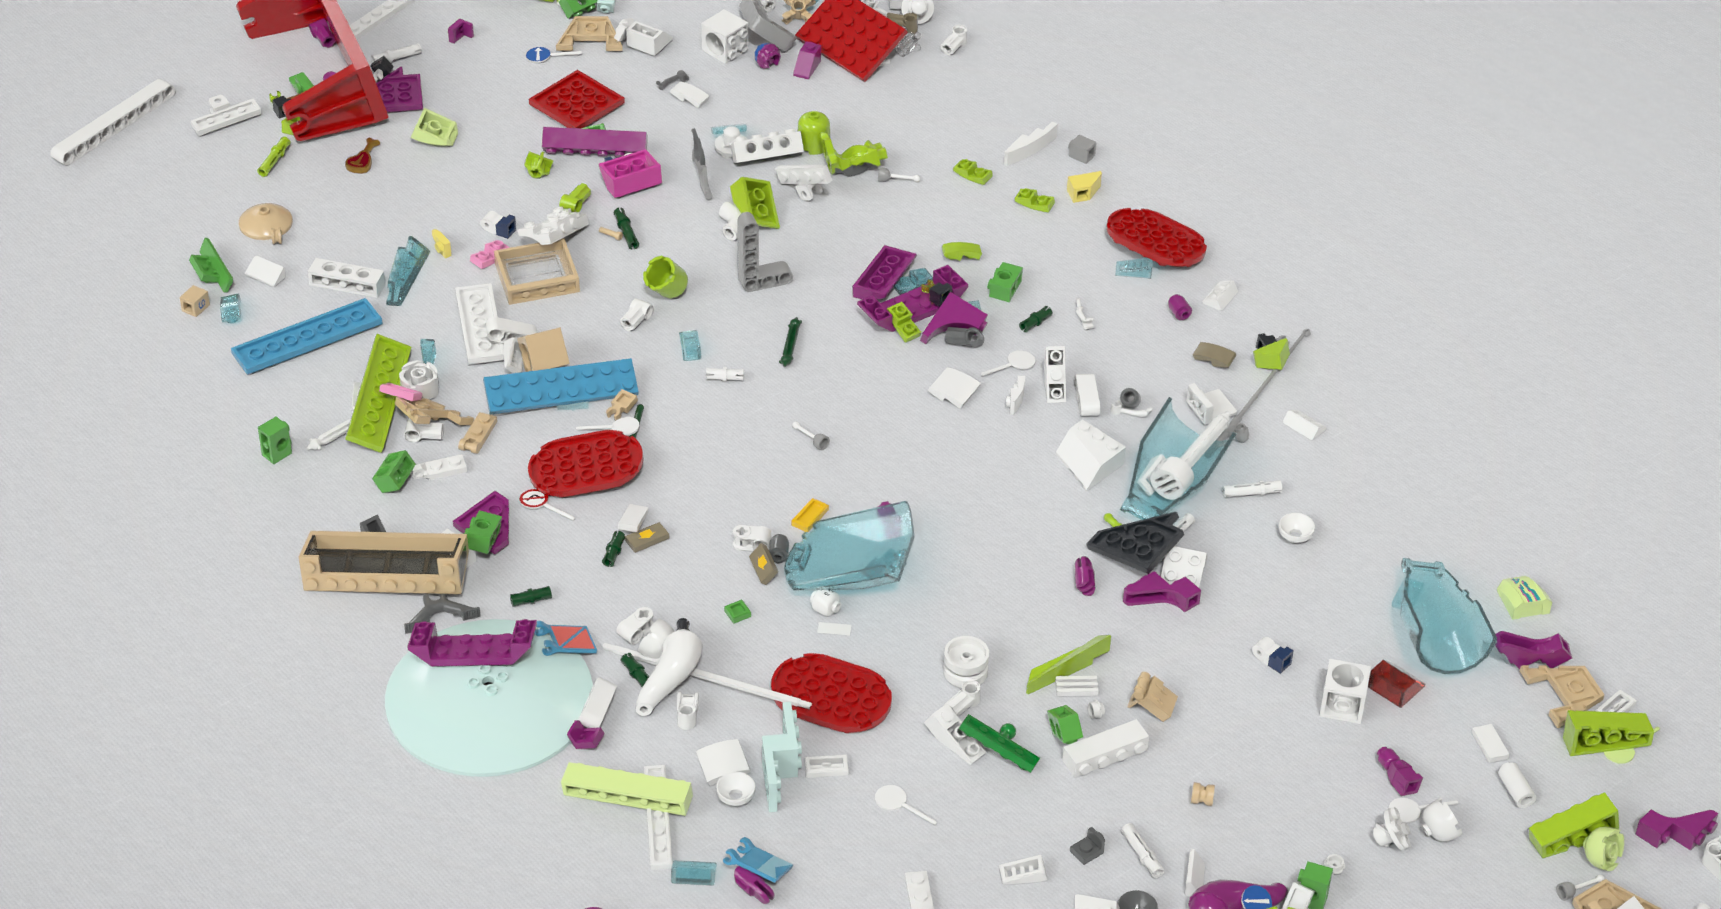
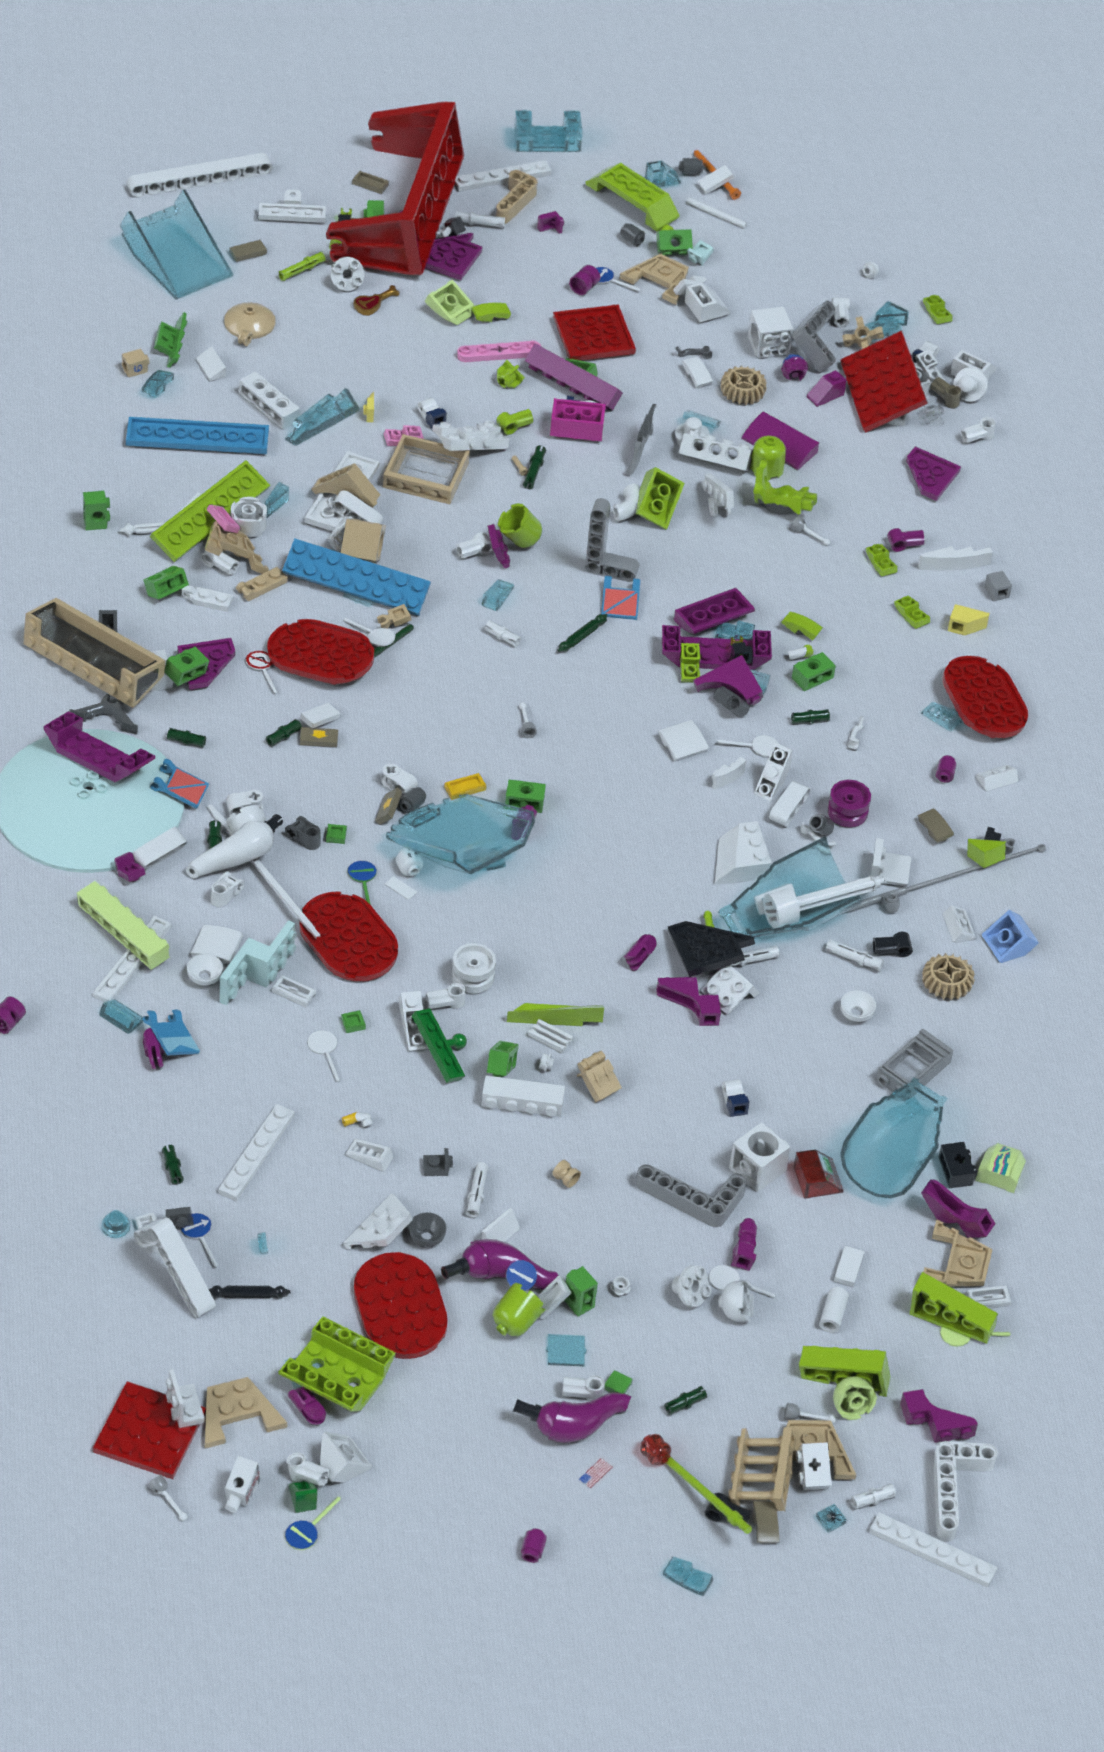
camera: 30 degrees right, 5 degrees up
(147, 187) = (176, 248): none -> clear light blue windscreen
(212, 165) = (248, 250): none -> dark tan tile
(271, 65) = (370, 182): none -> dark tan tile
(324, 143) = (347, 273): none -> white plate
(413, 14) = (522, 190): none -> tan beam
(473, 121) = (488, 311): none -> lime slope
(485, 306) = (351, 480): none -> tan arch
(508, 151) = (490, 352): none -> bright pink piece
(531, 62) = (584, 279): none -> magenta wheel
(537, 11) = (632, 234): none -> dark grey brick
(660, 303) = (498, 545): none -> magenta plate
(713, 624) = (305, 833): none -> dark grey piece
(738, 87) = (743, 385): none -> tan gear
(788, 112) = (798, 446): none -> magenta slope
(791, 632) = (362, 872): none -> blue piece
(796, 302) = (620, 602): none -> flag
(870, 494) = (525, 793): none -> bright green brick
(901, 764) = (353, 1021): none -> bright green tile
(947, 87) = (931, 472): none -> magenta plate
(975, 148) = (900, 540): none -> magenta piece
(983, 270) = (804, 652): none -> white arm
(983, 845) = (356, 1117): none -> arm
(1136, 369) = (849, 803): none -> magenta wheel
(1275, 463) = (898, 944): none -> black piece
(1325, 759) = (708, 1209): none -> light grey beam
(1339, 467) = (948, 976): none -> tan gear
(1354, 413) = (1010, 937): none -> light blue slope
(1382, 551) = (919, 1058): none -> light grey door
(1498, 613) = (957, 1165): none -> black brick

